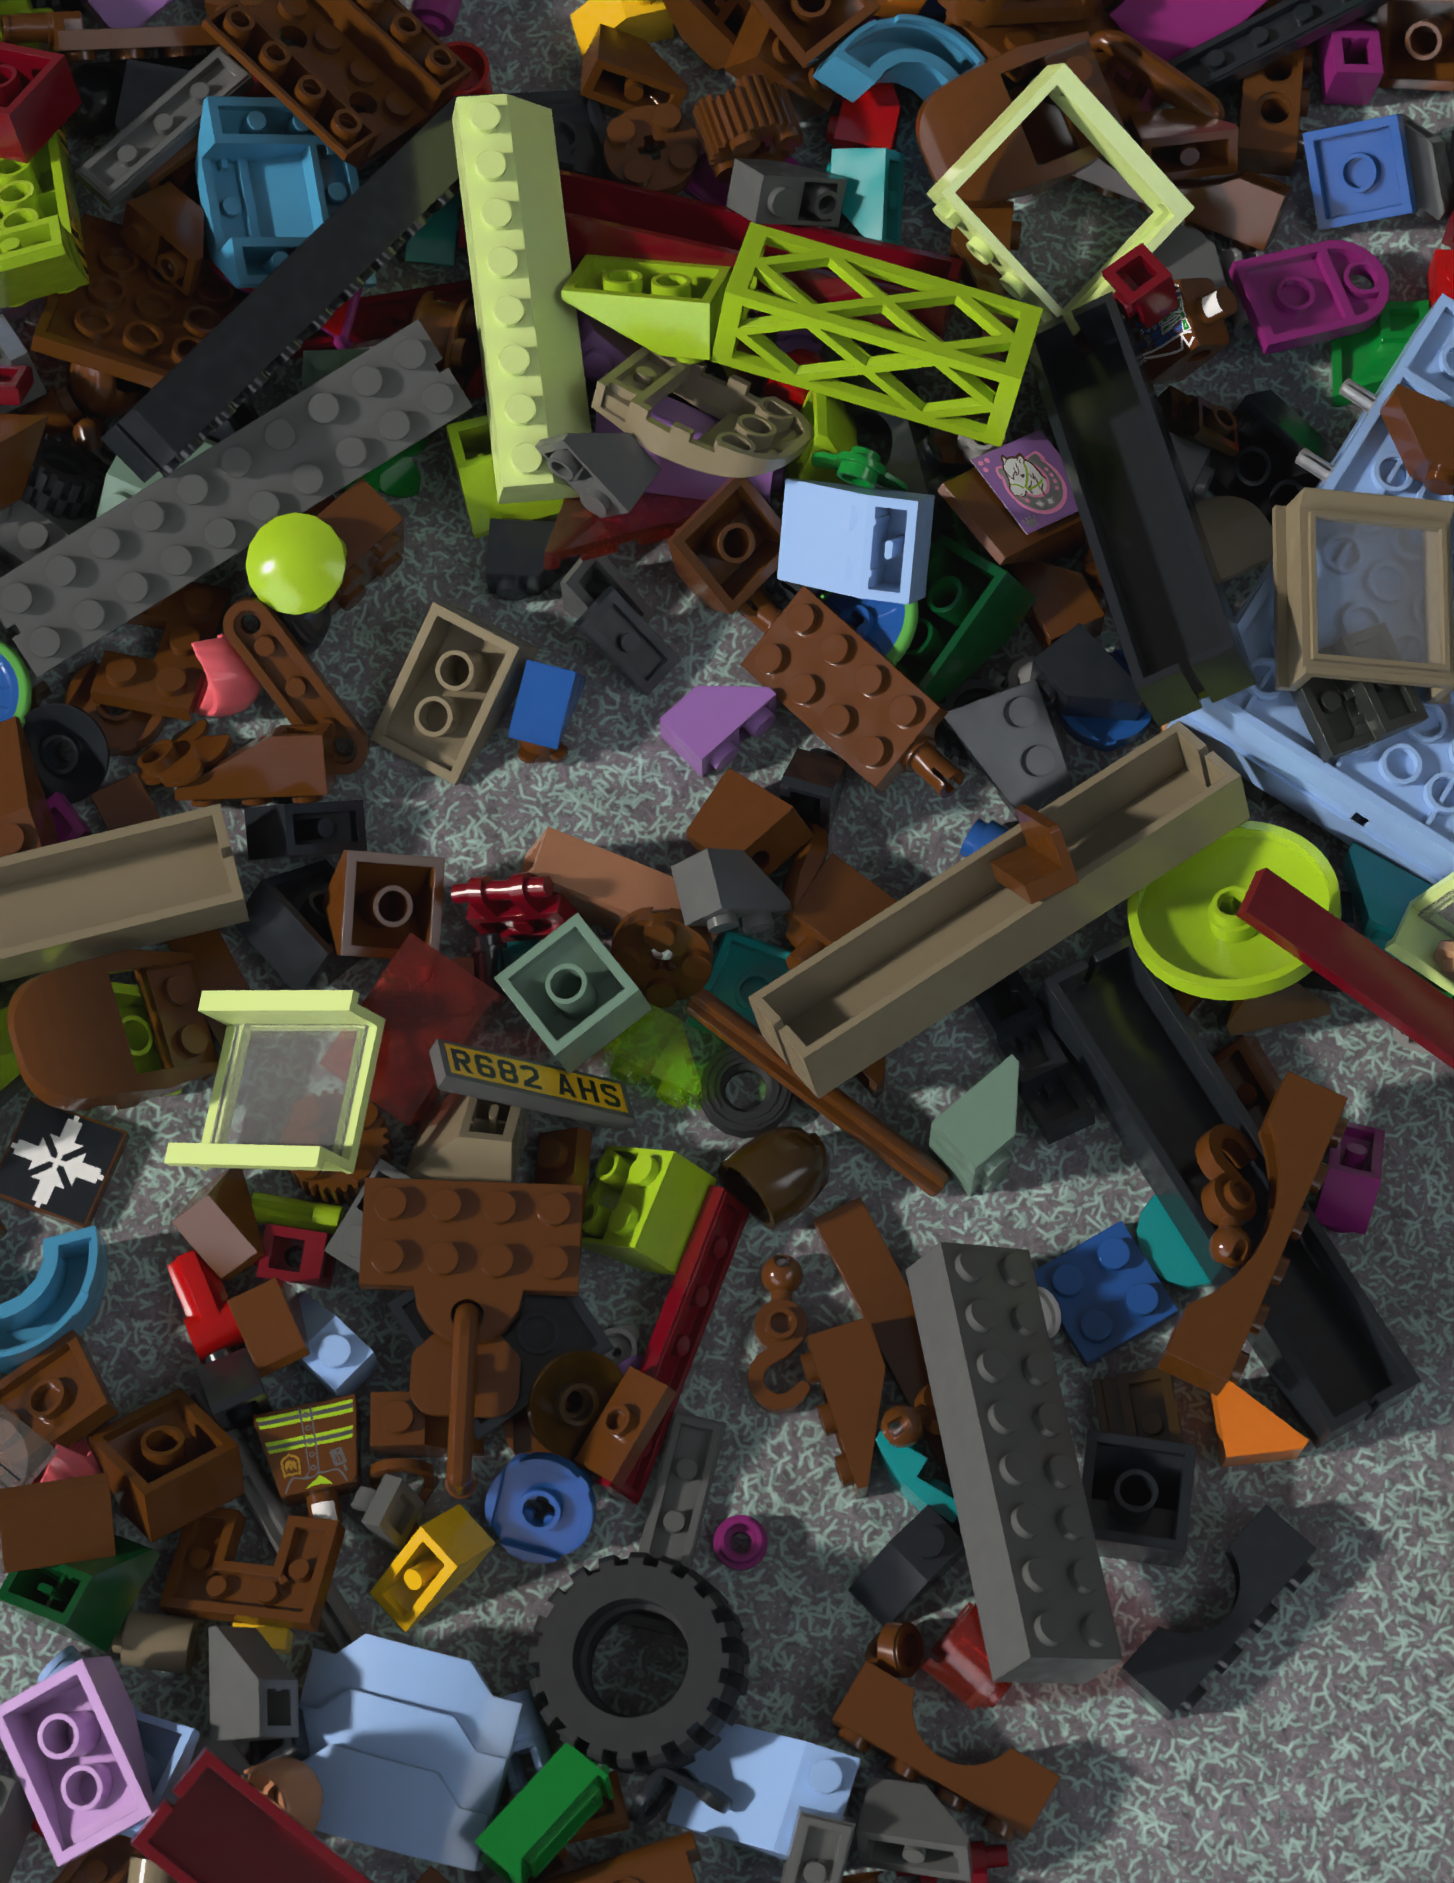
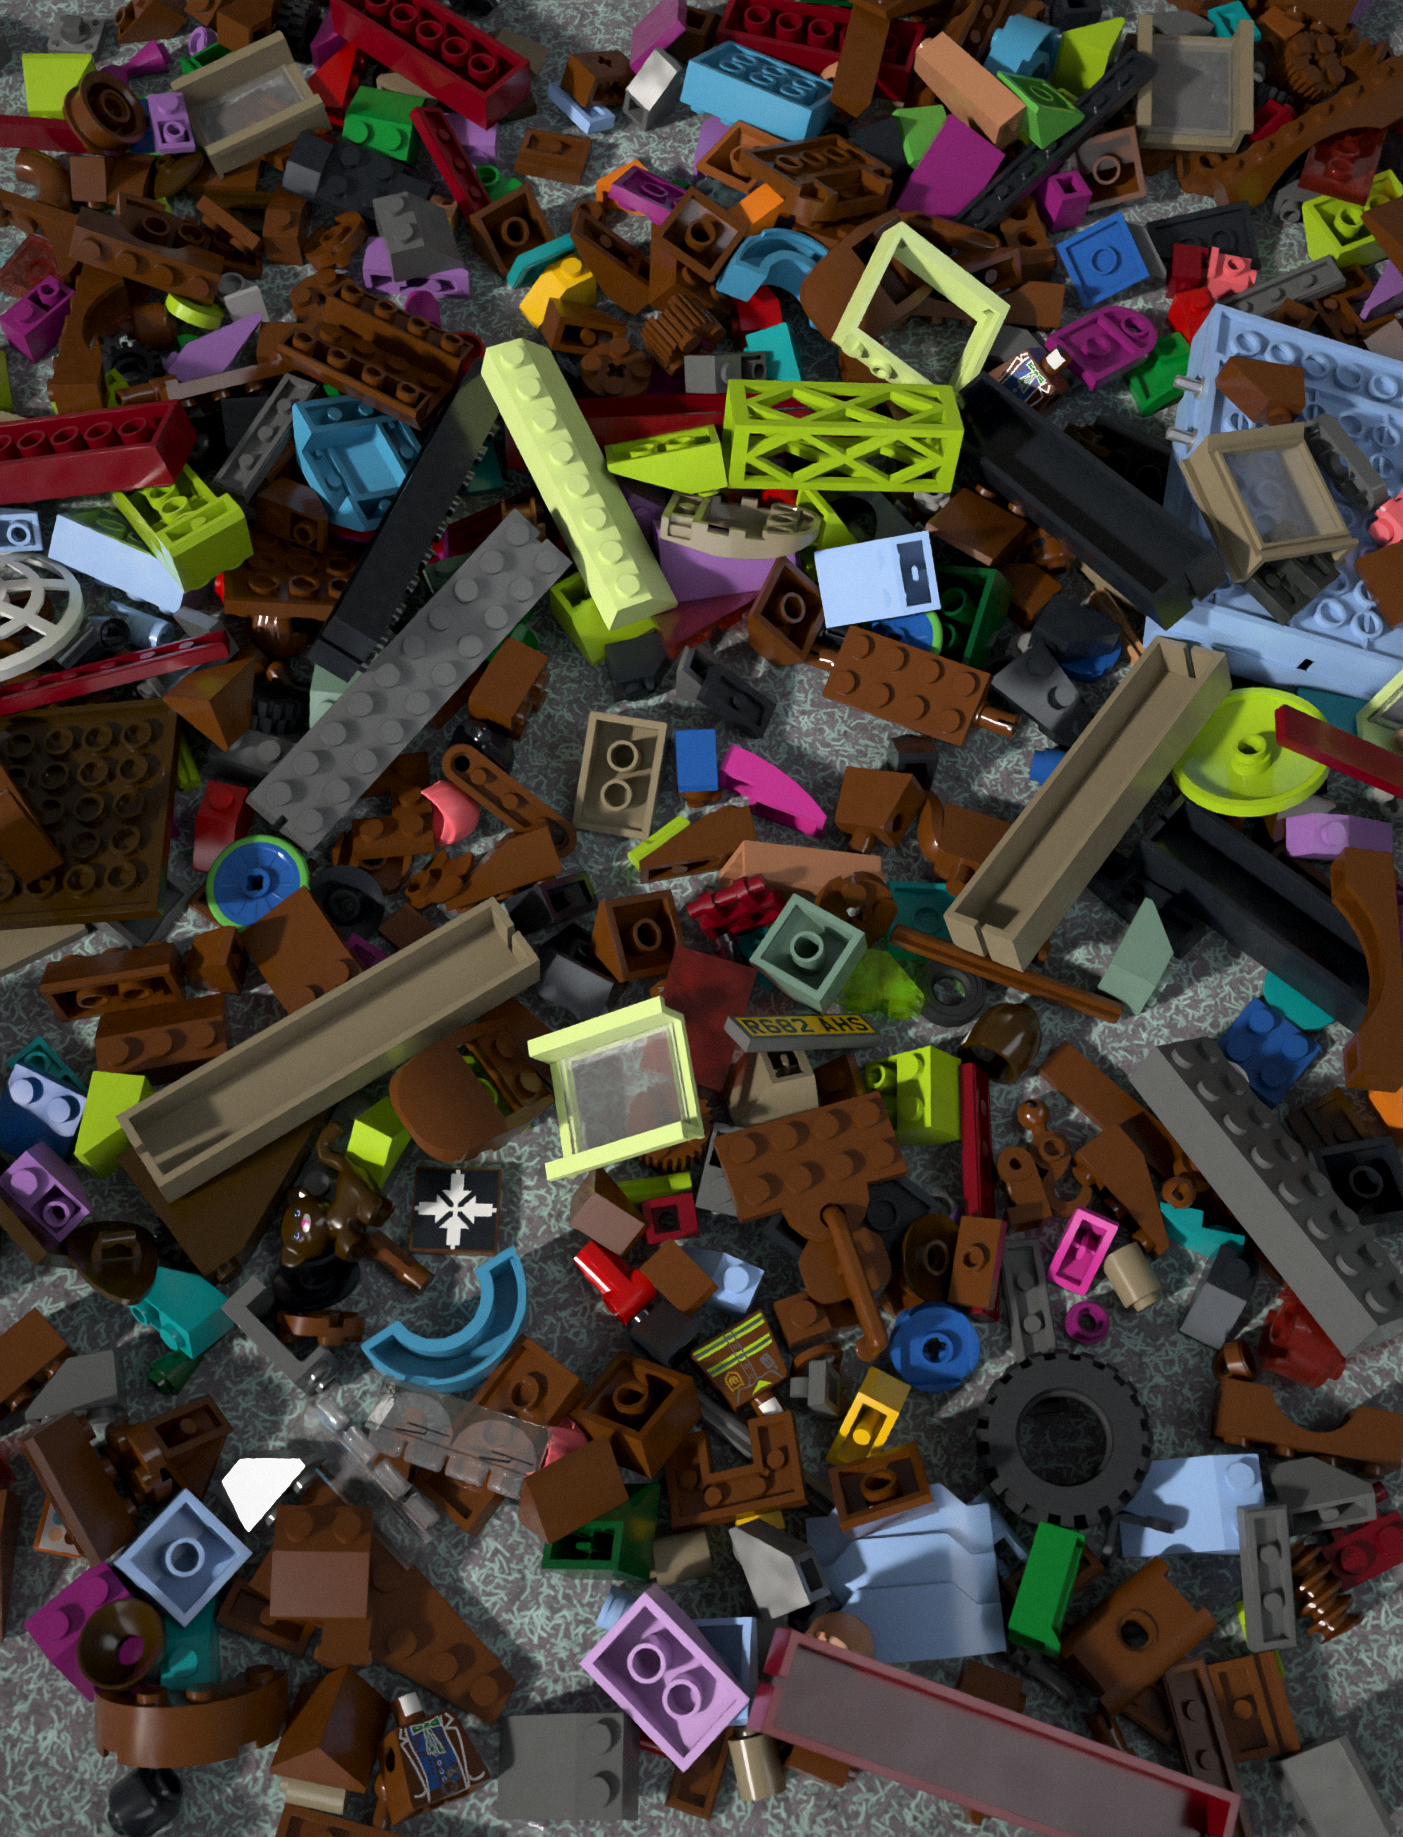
camera: 25 degrees left, 5 degrees down
(296, 563) = (483, 708): lime dish -> none
(394, 1646) = (881, 1491): none -> reddish brown slope
(468, 793) = (656, 840): none -> lime piece
(513, 812) = (700, 847): none -> reddish brown slope
(603, 469) = (683, 579): dark grey slope -> none
(623, 769) = (770, 792): none -> dark pink slope
(715, 721) = (818, 741): medium lavender slope -> none
(727, 892) = (889, 848): dark grey slope -> none
(730, 1344) = (1023, 1189): none -> reddish brown leg
(765, 1456) = (1081, 1250): none -> dark pink slope
(814, 1507) = (1132, 1277): none -> dark tan brick
(859, 468) = (866, 526): green plate -> none
(1029, 481) = (983, 507): sticker -> none
(1041, 865) = (1115, 750): reddish brown panel -> none
(1142, 286) = (1007, 368): dark red brick -> none
(1227, 1197) = (1336, 950): reddish brown piece -> none
(1319, 1057) = (1325, 835): none -> medium lavender slope

